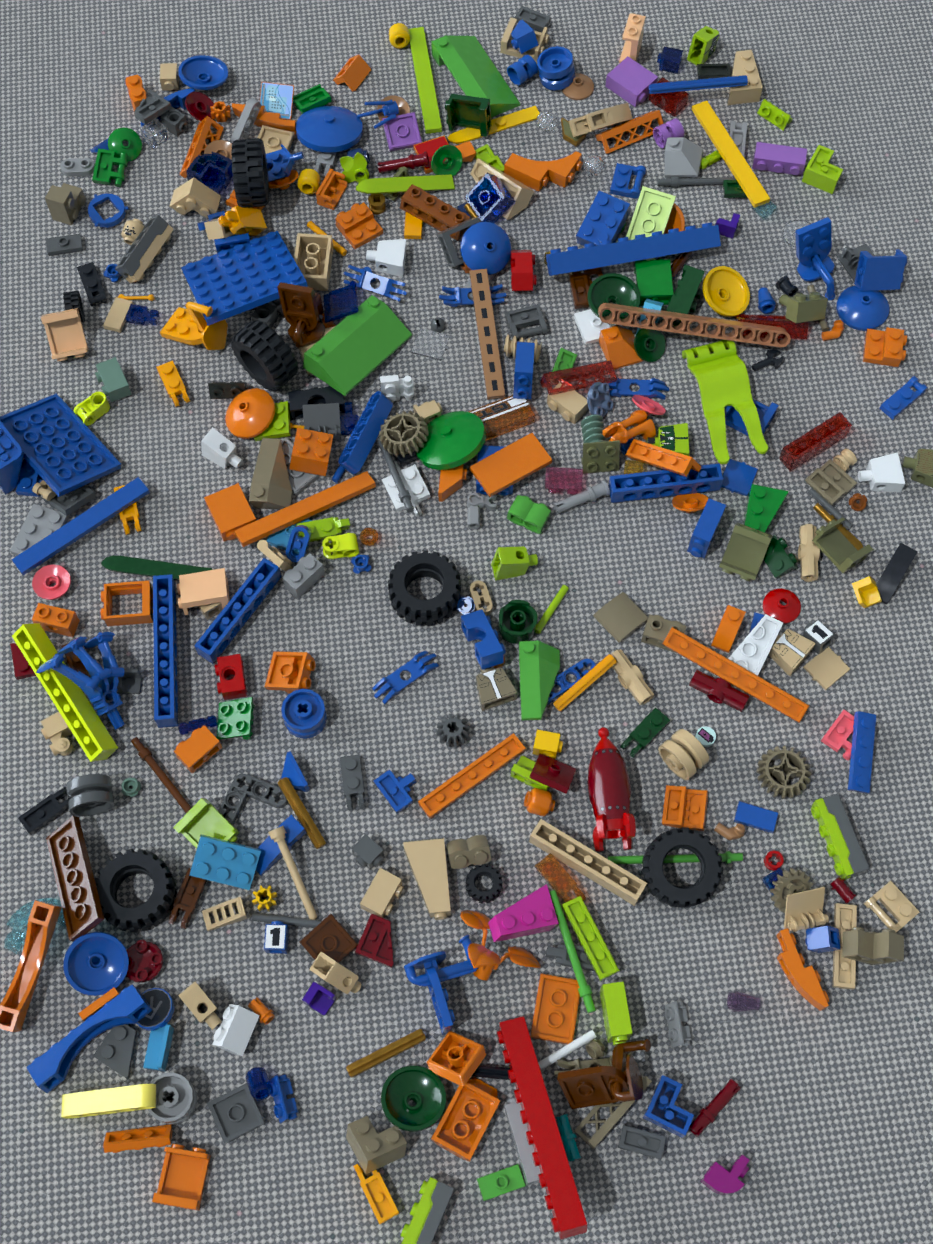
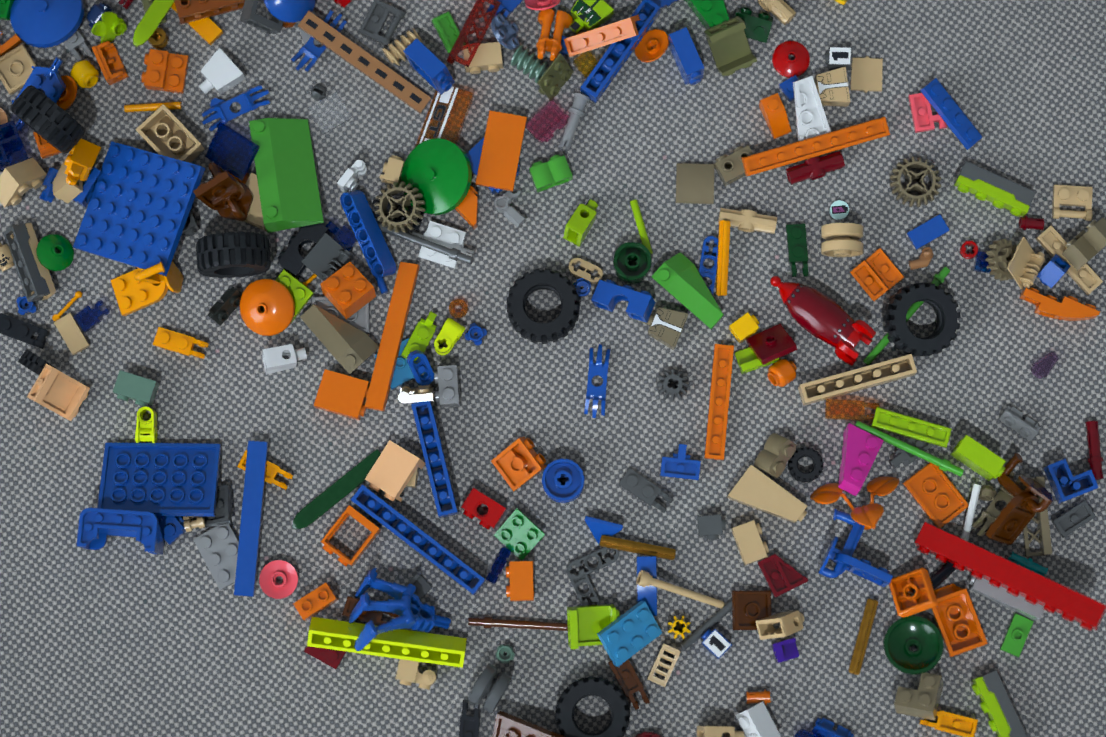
camera: 40 degrees left, 15 degrees up
(161, 264) = (49, 258): none -> green dish

